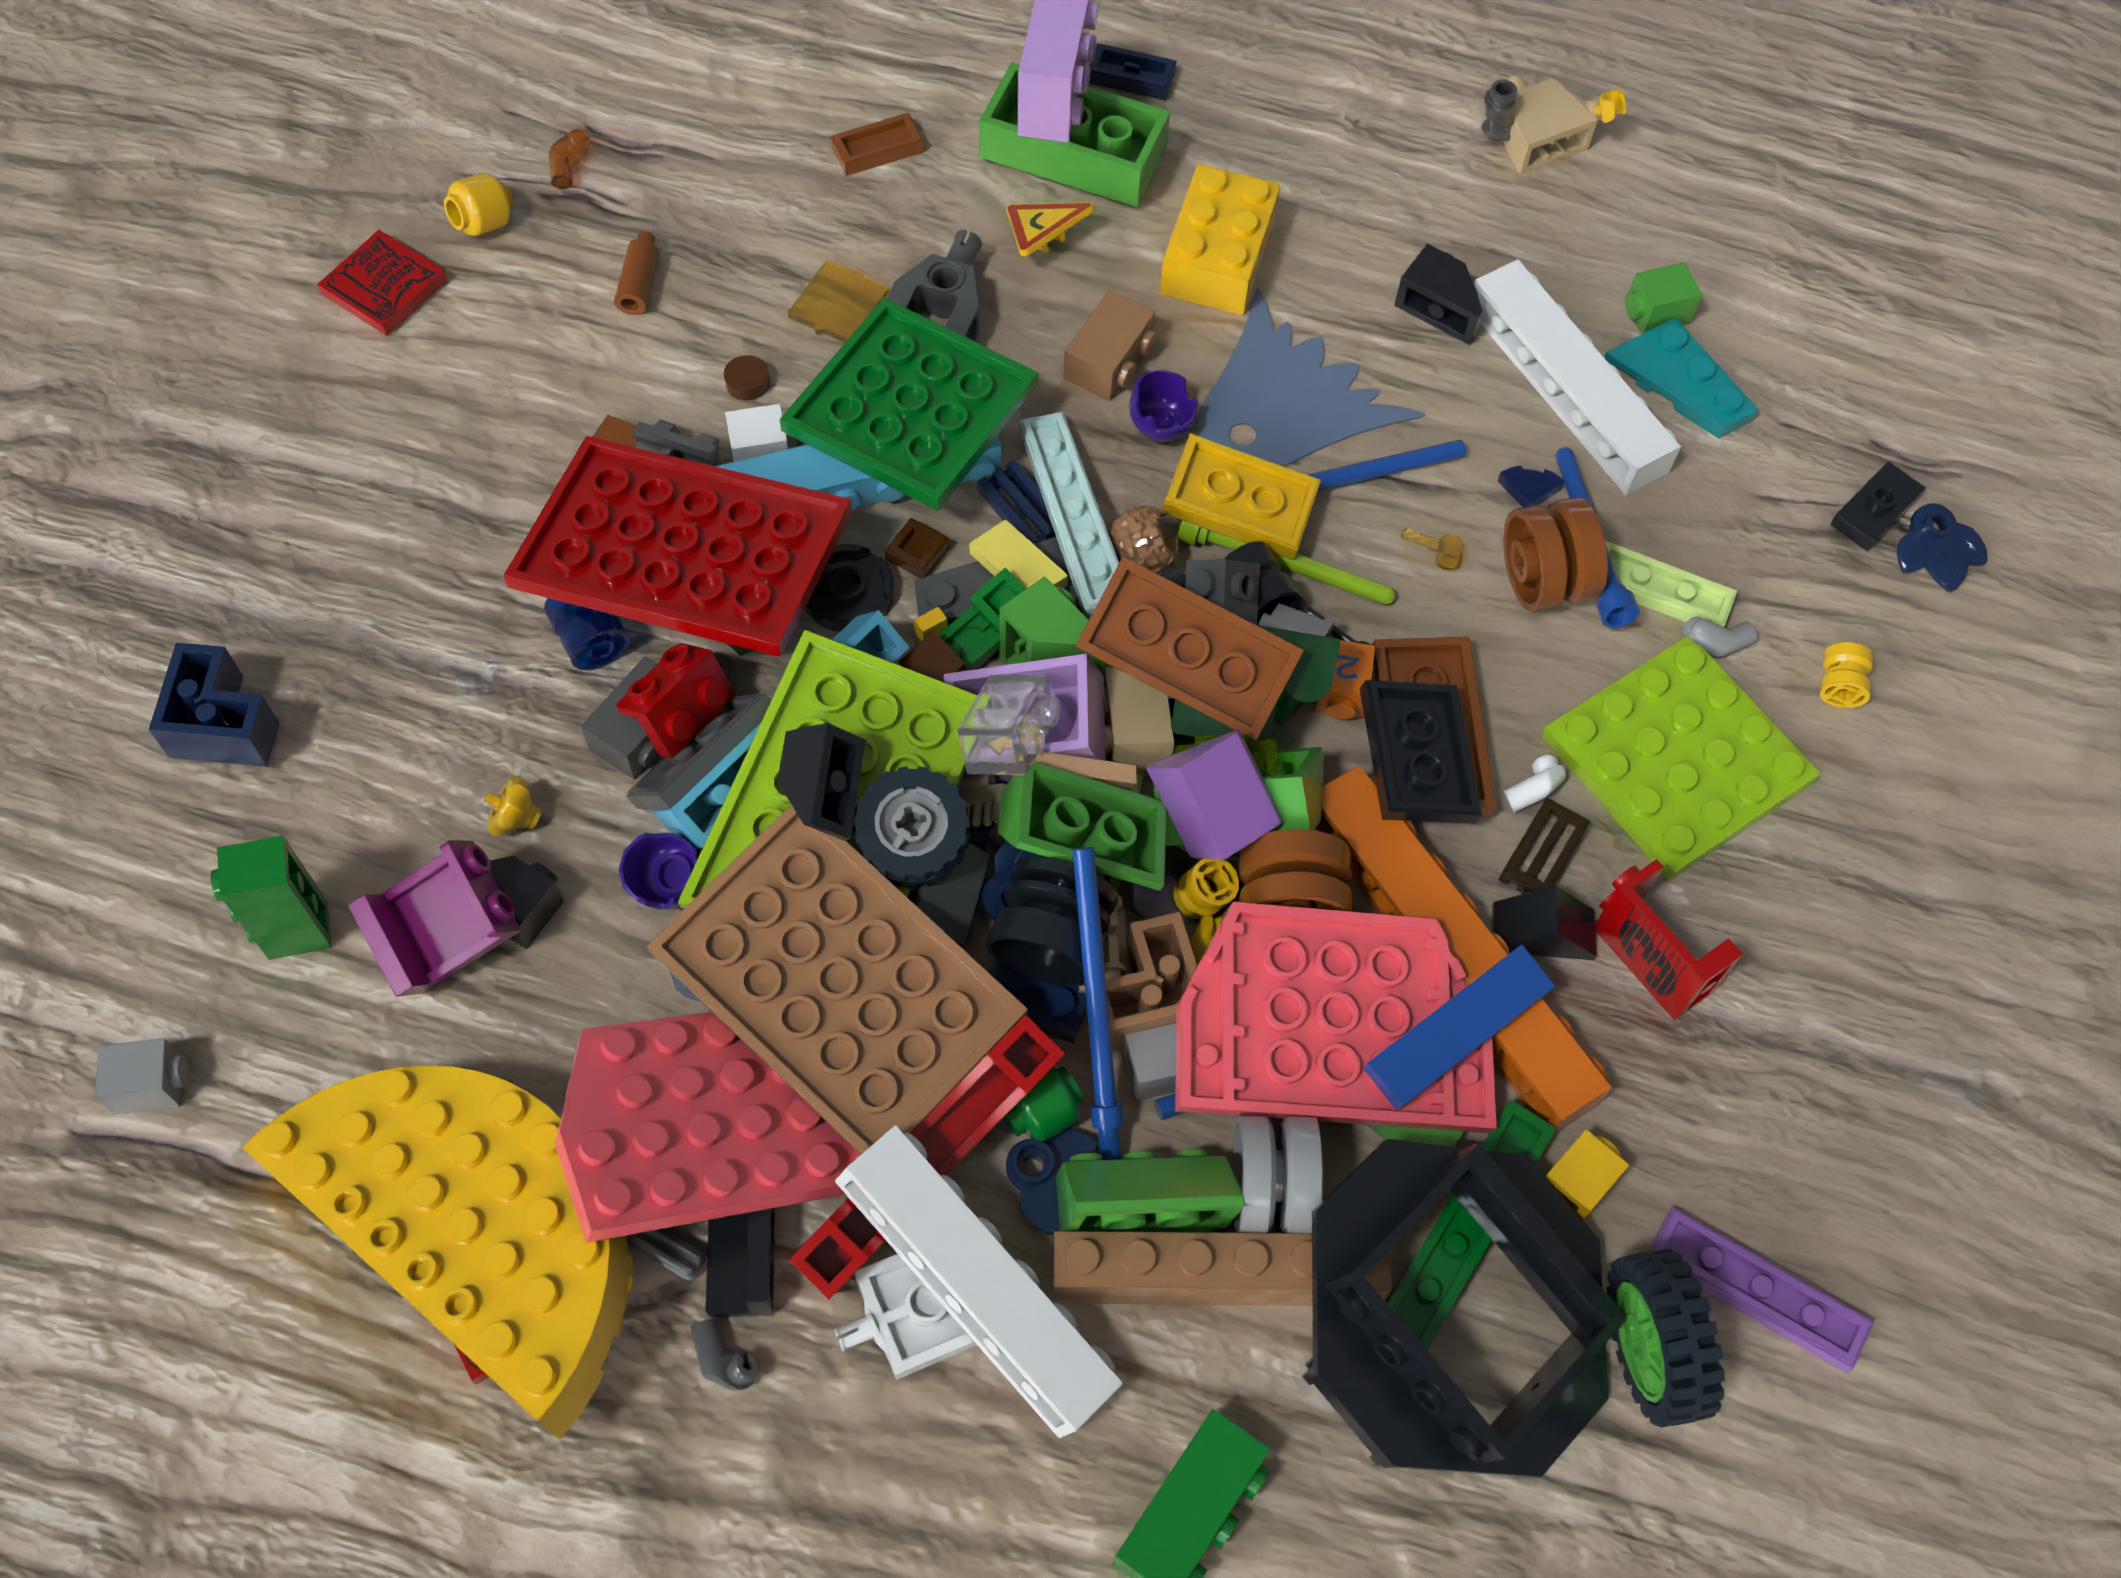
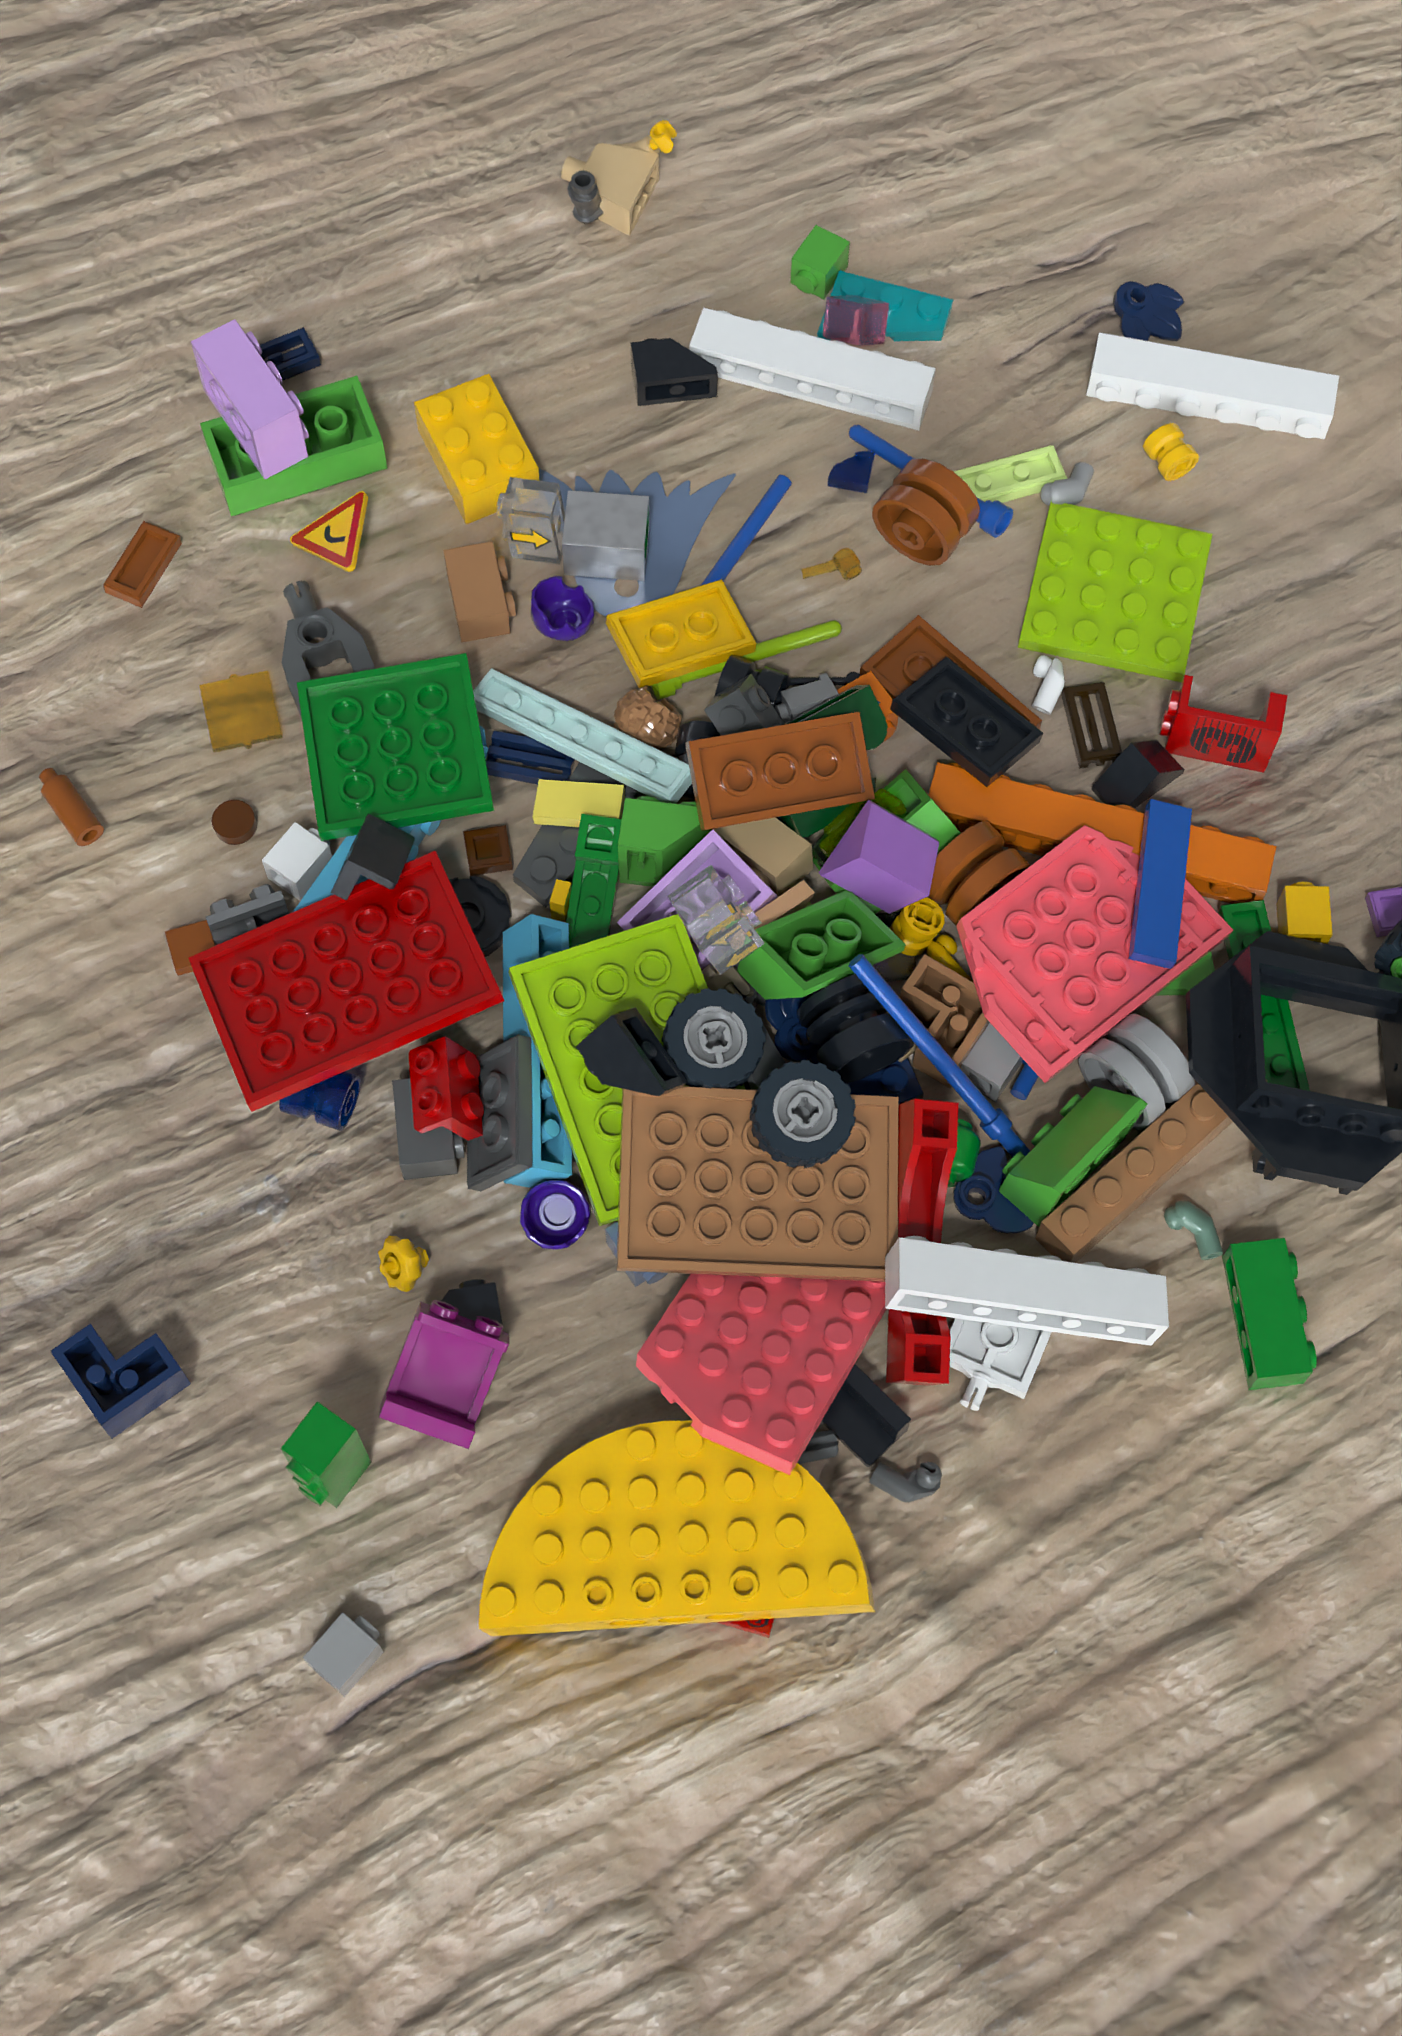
camera: 40 degrees left, 5 degrees up
(794, 463) = (376, 854): none -> black panel
(921, 948) = (802, 1114): none -> black wheel
(933, 658) = (589, 920): reddish brown tile -> none
(1205, 319) = (532, 519): none -> clear brick
(1211, 1365) = (1199, 1223): none -> sand green arm
(1256, 376) = (606, 535): none -> flat silver piece
(1647, 361) = (855, 320): none -> clear pink panel
(1877, 506) = (1084, 310): black plate -> none
(1944, 650) = (1212, 386): none -> white brick

